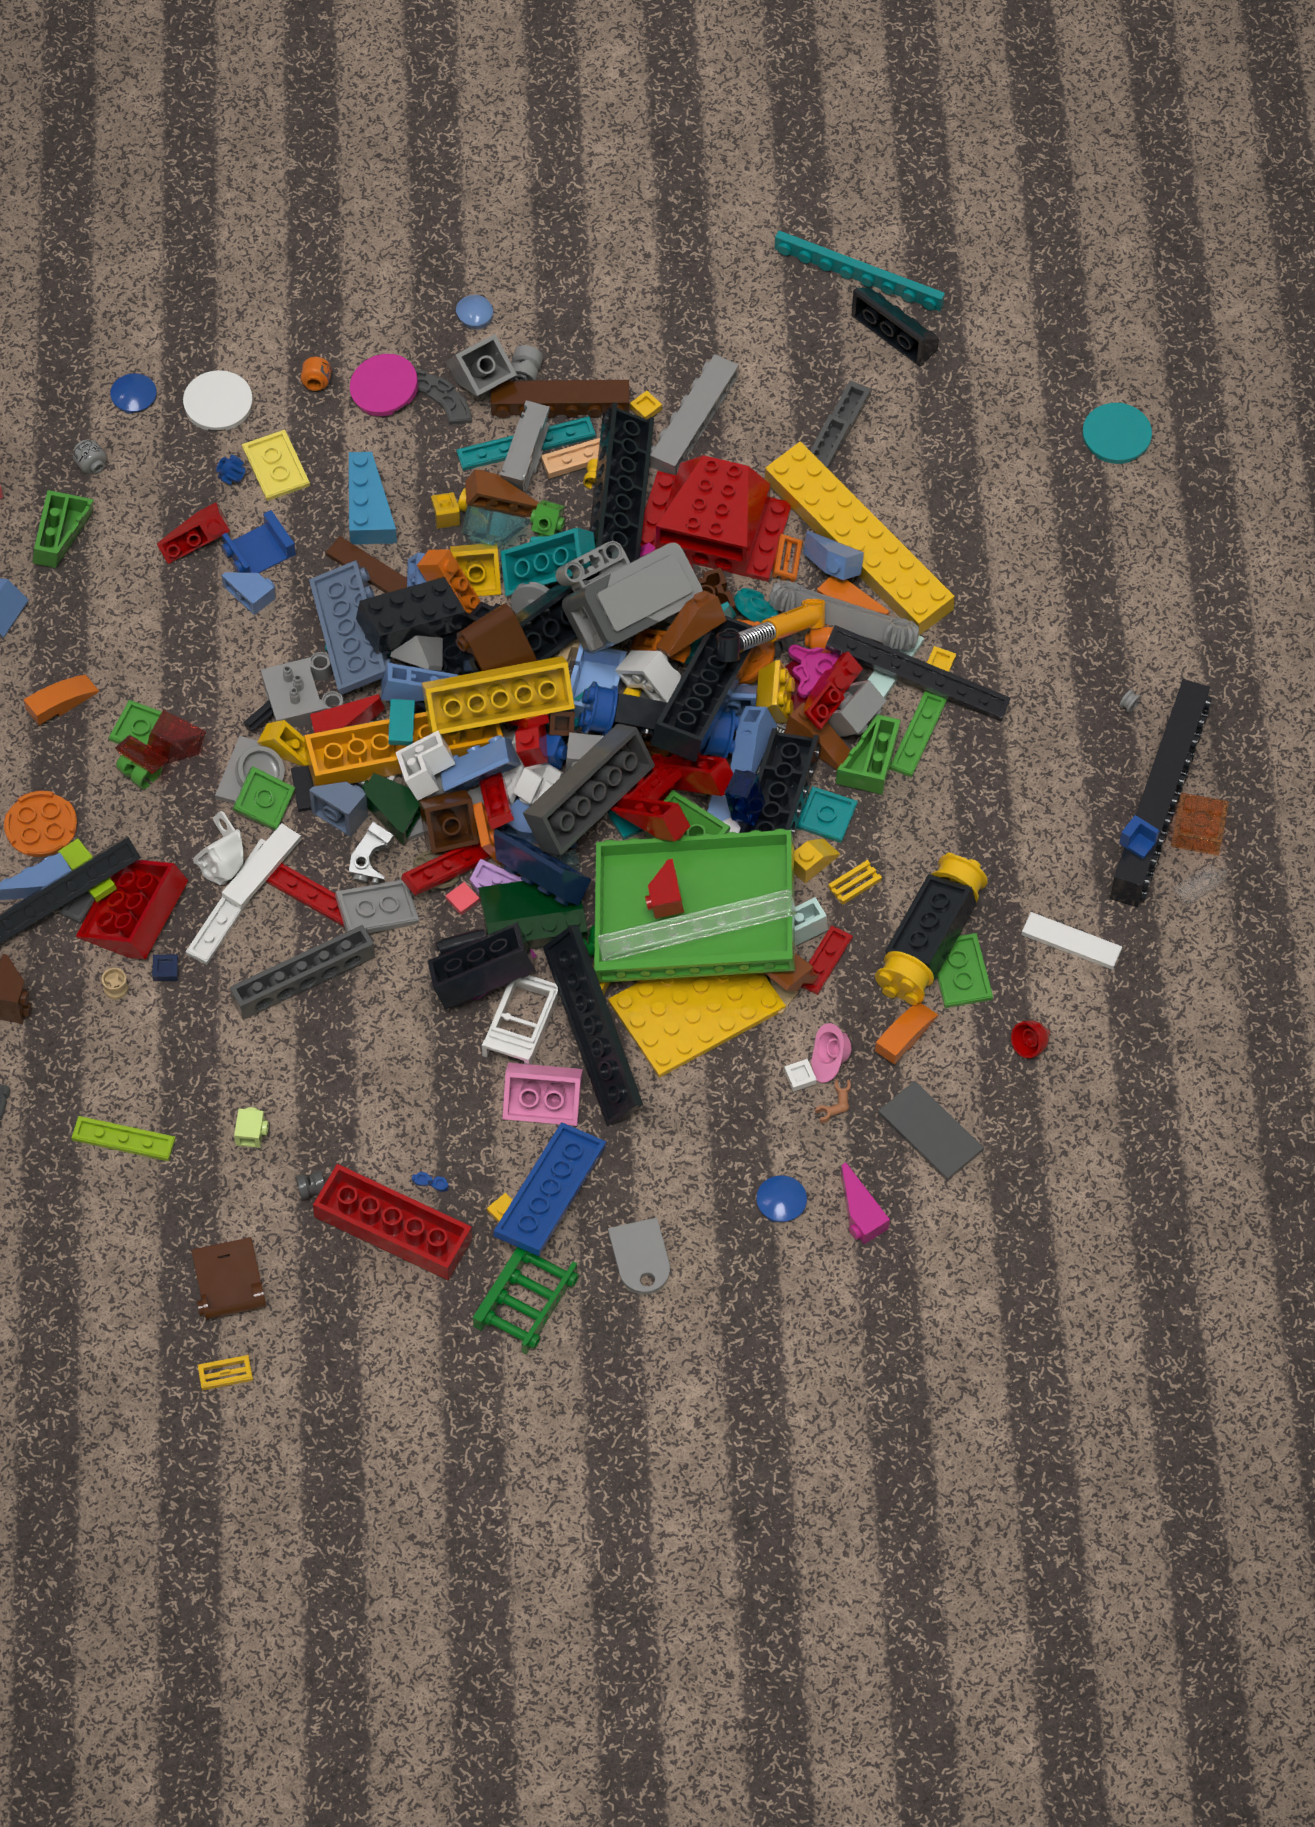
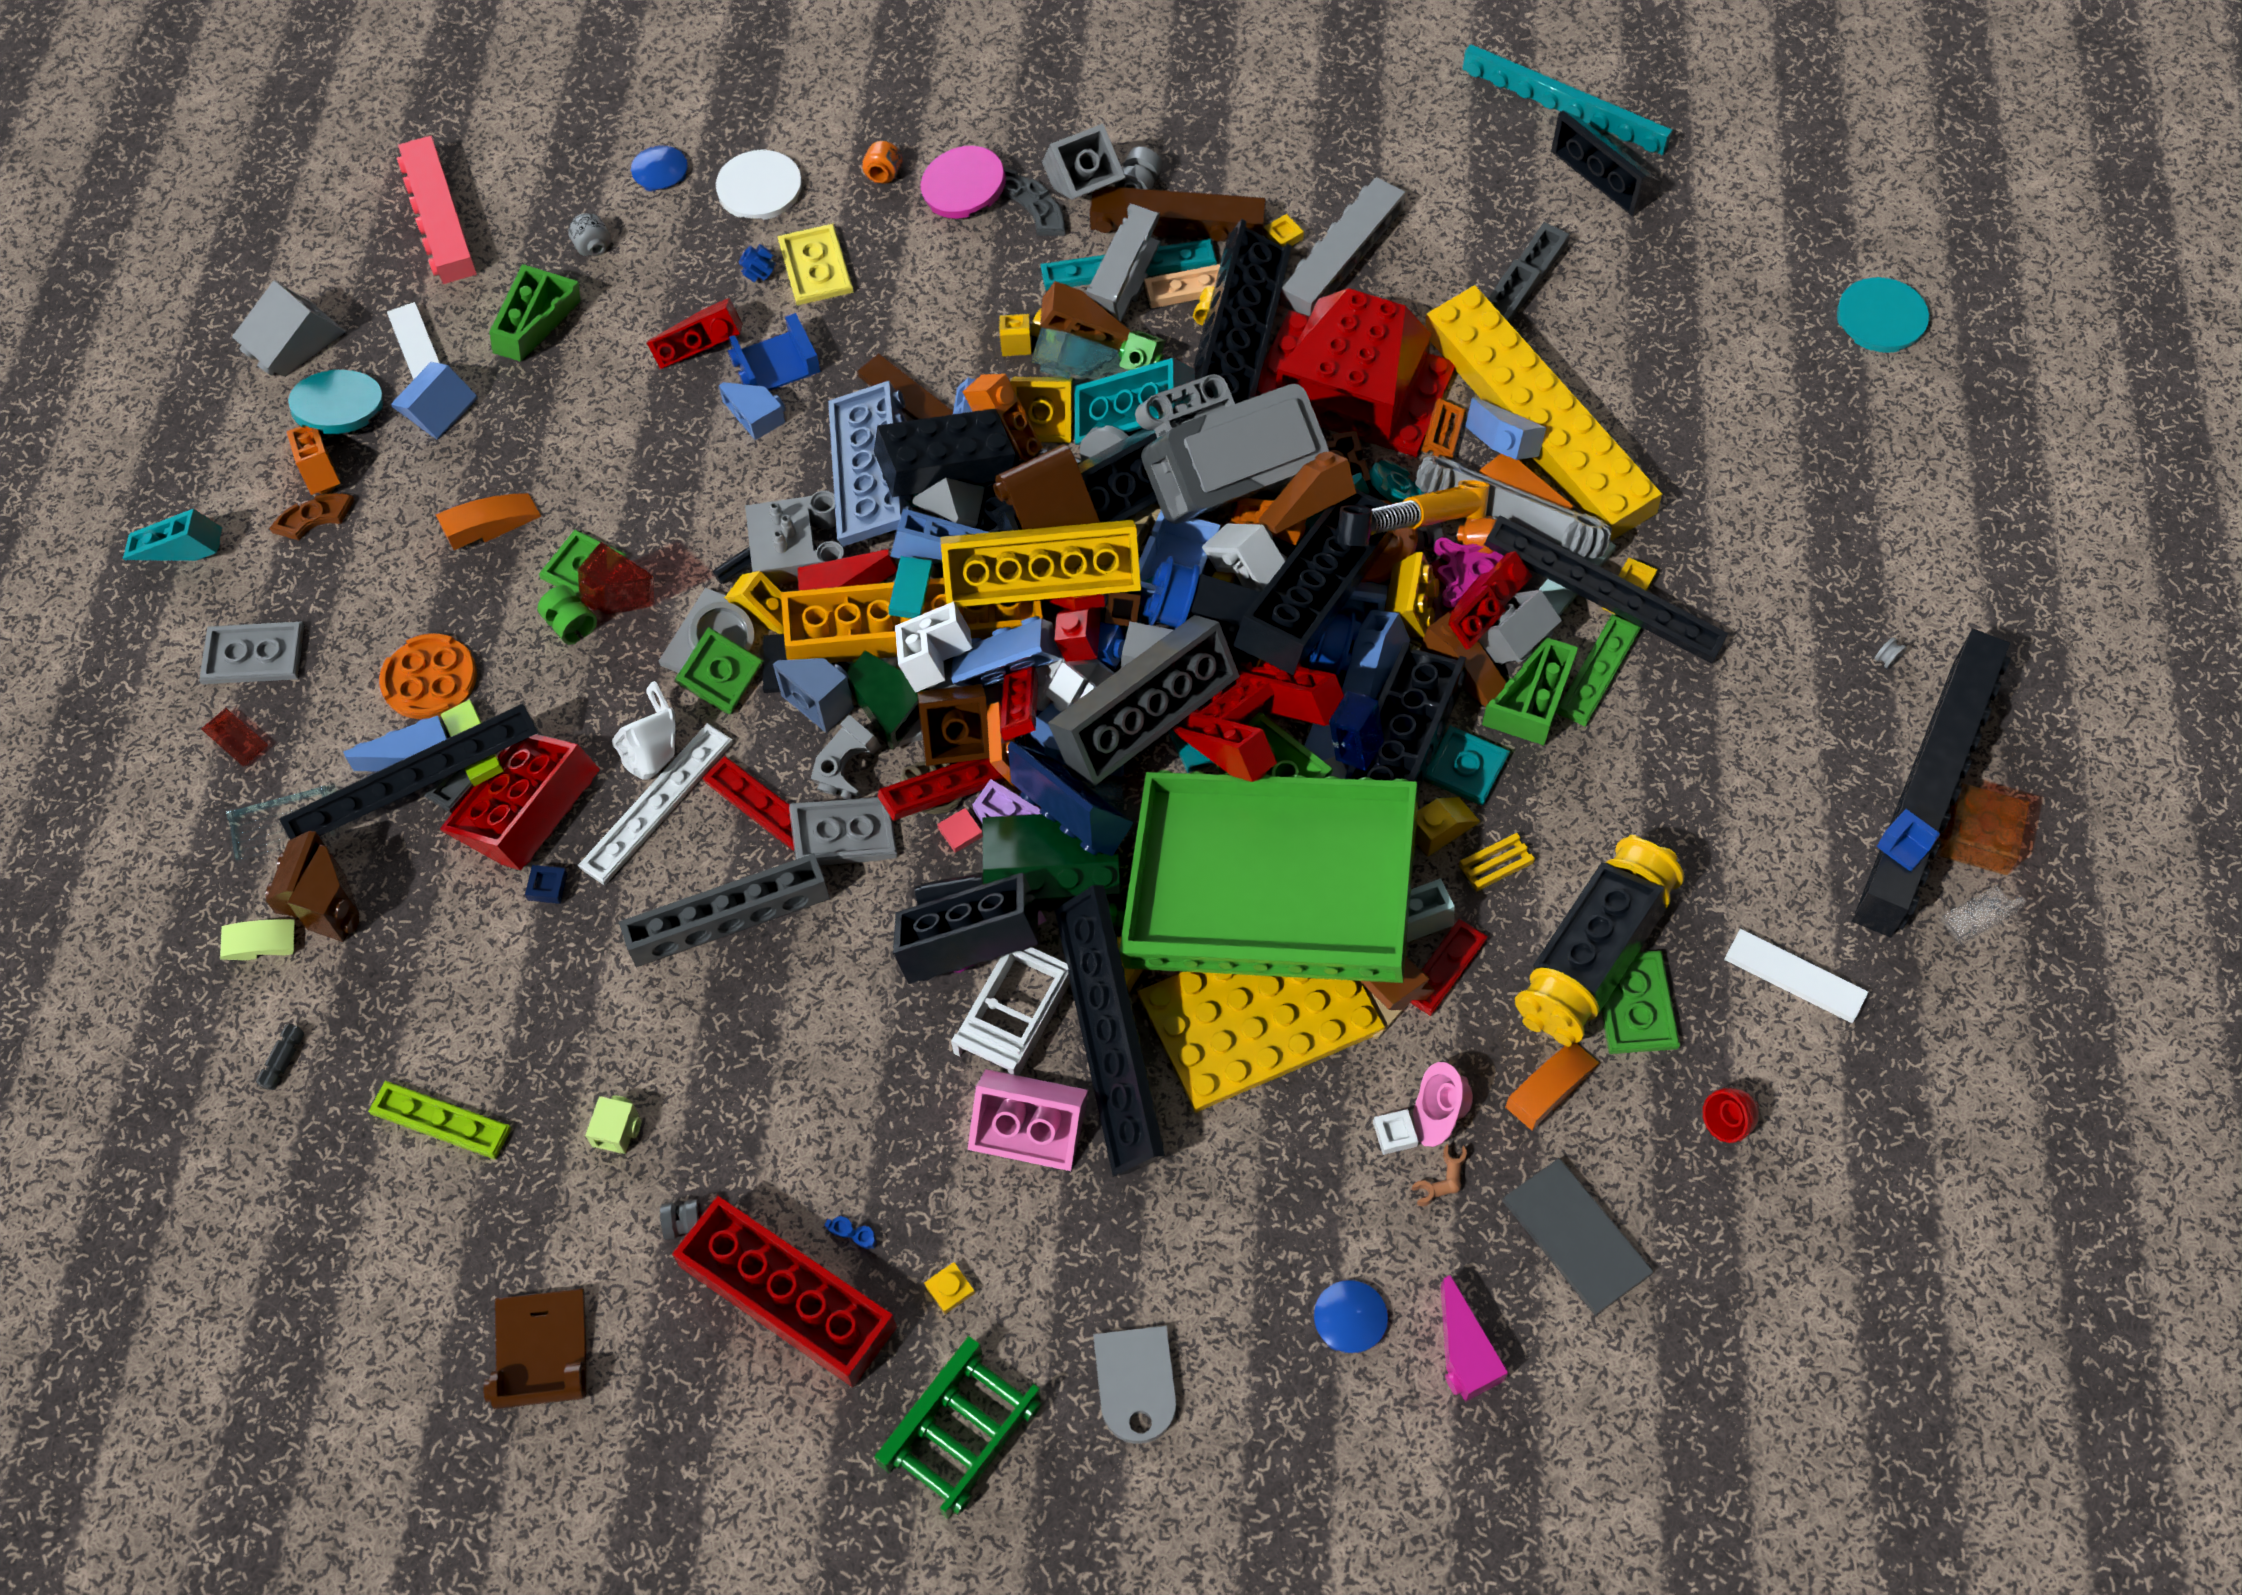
camera: 10 degrees right, 0 degrees up
(111, 980) = (473, 899): tan wheel -> none
(141, 754) = (566, 597): clear red tile -> none
(226, 1381) = (538, 1493): yellow tile -> none
(261, 866) = (698, 760): white tile -> none
(368, 507) = (917, 321): dark azure wedge -> none
(474, 311) = (1087, 110): medium blue hat -> none
(549, 1189) = (1014, 1268): blue plate -> none
(664, 892) = (1230, 852): red slope -> none
(697, 925) = (1271, 903): clear tile -> none

